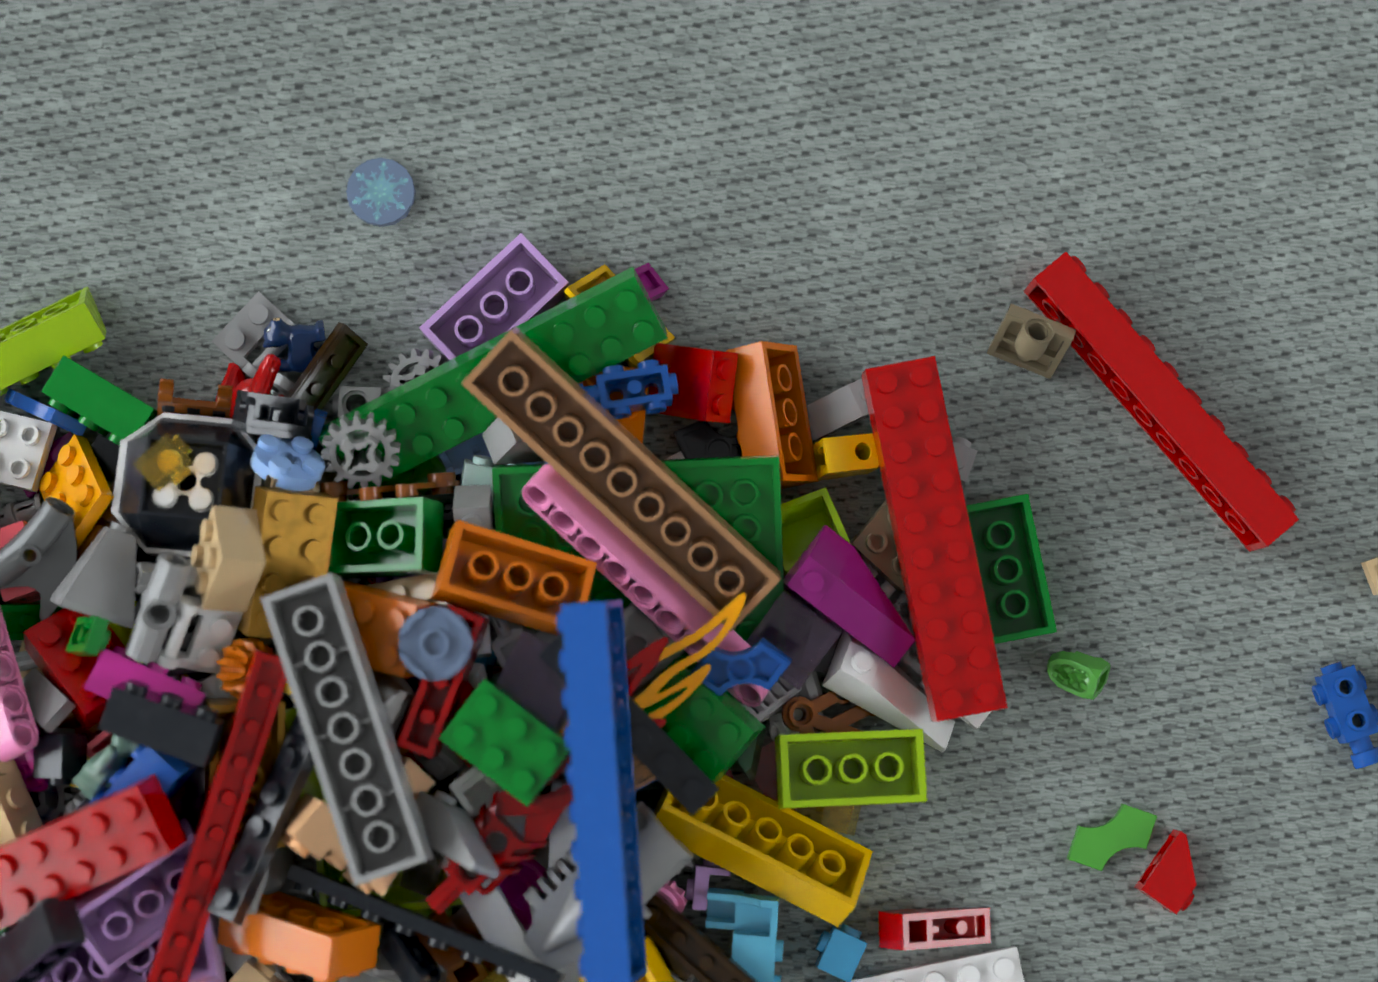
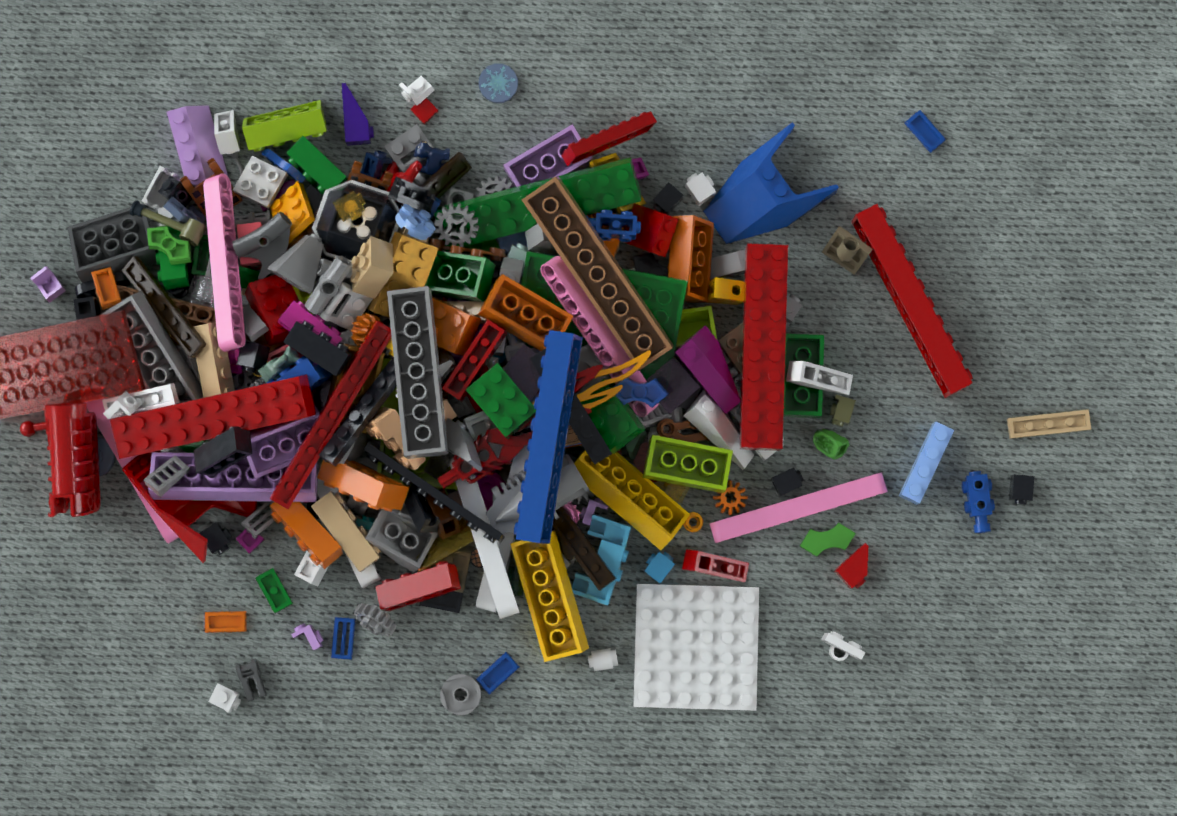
camera: 20 degrees right, 0 degrees up
(89, 636) = (286, 292): green plate -> none
(155, 316) = (355, 122): none -> dark purple slope
(199, 375) = (374, 162): none -> dark blue bracket
(246, 235) = (417, 90): none -> white bracket
(266, 265) = (424, 111): none -> red tile
(435, 643) = (475, 338): sand blue tile -> none
(587, 243) = (608, 138): none -> red piece
(709, 323) = (667, 199): none -> black brick
(760, 291) = (700, 188): none -> white brick
(862, 285) = (759, 198): none -> blue windscreen
(890, 861) = (699, 522): none -> light orange plate
(938, 817) = (737, 495): none -> orange gear
(1022, 755) = (787, 481): none -> black brick
(1038, 569) = (819, 377): none -> white slope
(1051, 797) = (798, 507): none -> bright pink beam
(1085, 613) = (842, 410): none -> olive brick
(1109, 113) = (925, 131): none -> blue tile
(1247, 669) = (926, 463): none -> light blue brick

